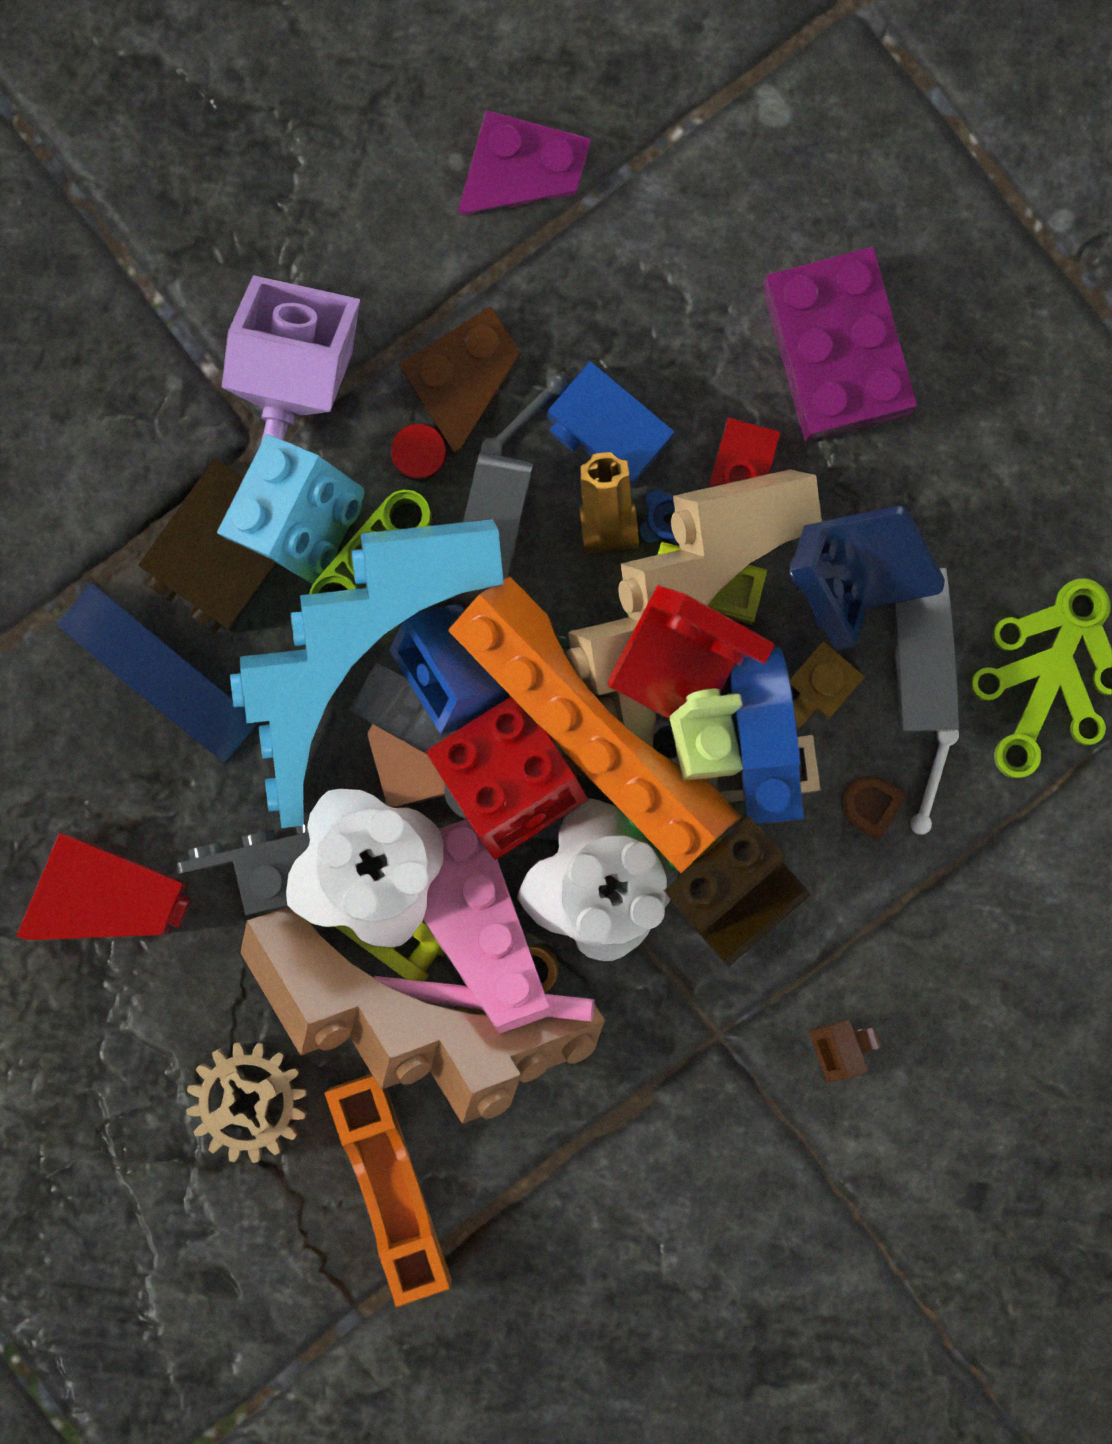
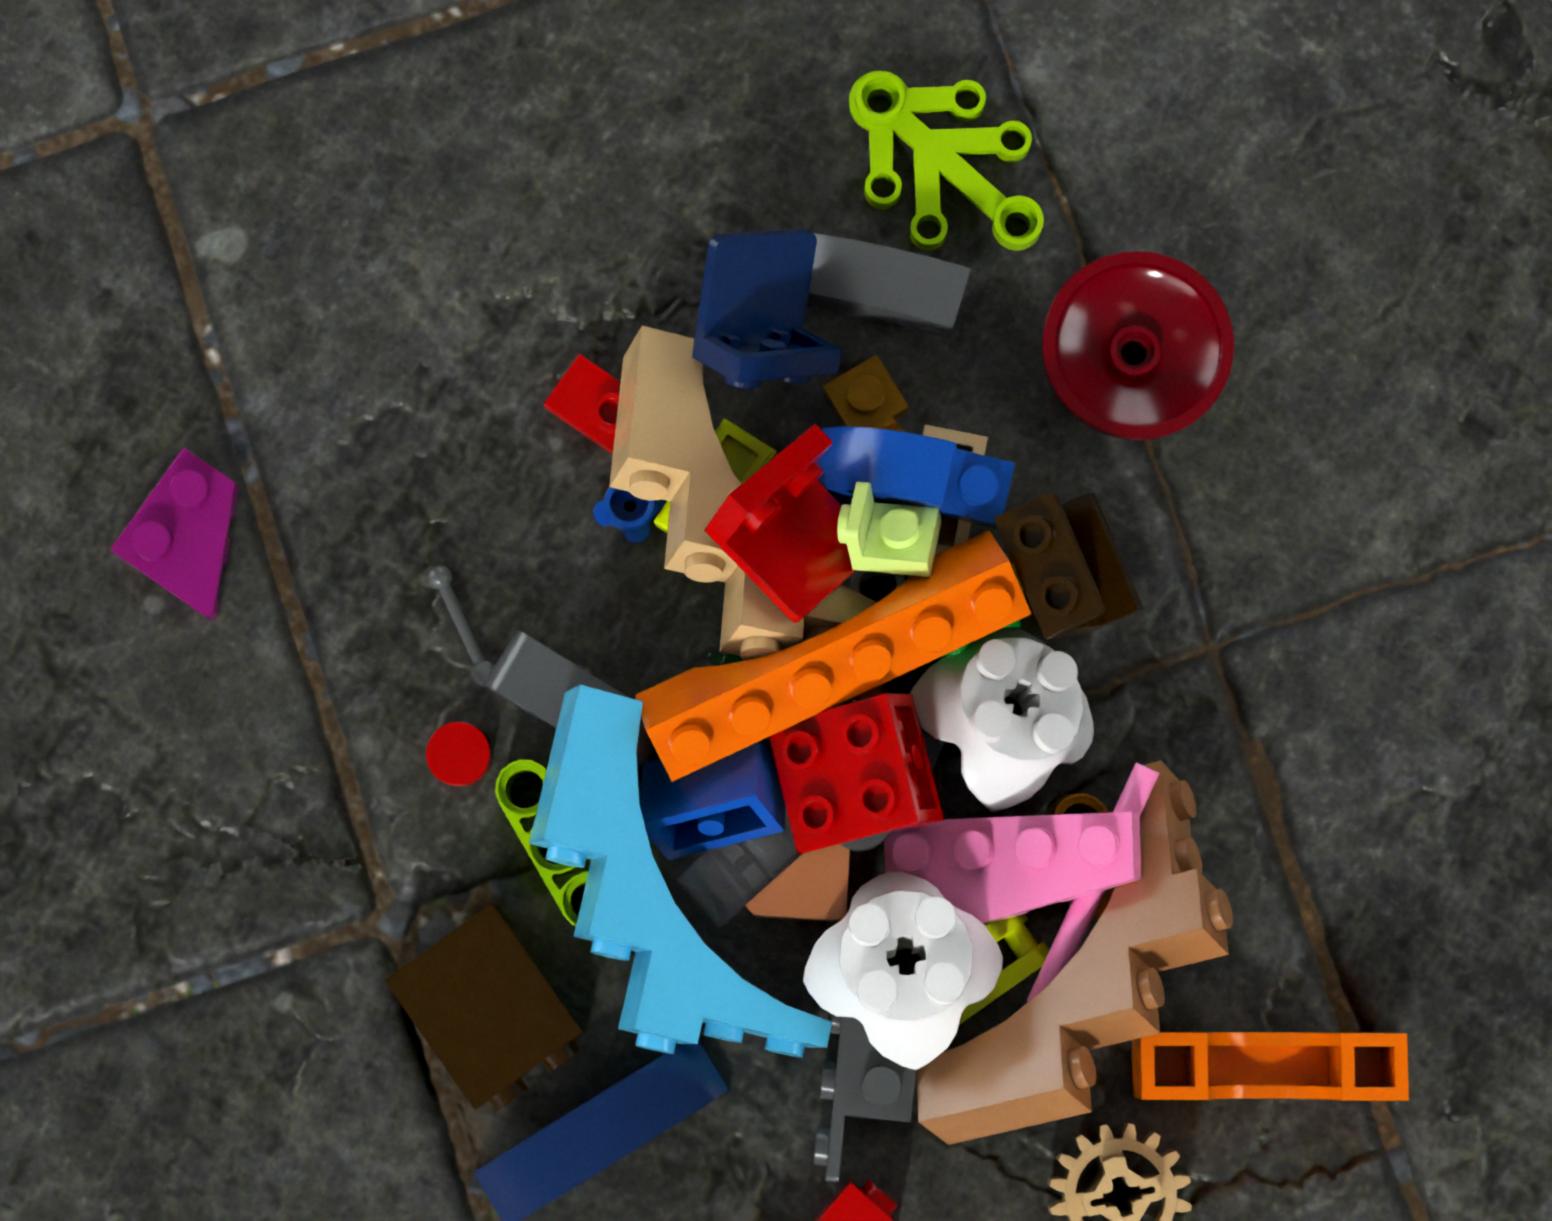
camera: 70 degrees left, 5 degrees down
(289, 350) = (297, 856): lavender piece -> none
(292, 508) = (472, 912): medium azure bracket -> none
(461, 374) = (390, 677): reddish brown wing -> none
(606, 418) = (506, 535): blue brick -> none
(607, 507) = (601, 565): pearl gold piece -> none
(839, 344) = (507, 257): magenta brick -> none
(842, 1049) = (1274, 516): reddish brown tile -> none
(871, 805) = (1017, 396): reddish brown tile -> none
(921, 822) = (974, 295): white hinge -> none
(983, 897) = (1148, 305): none -> dark red dish

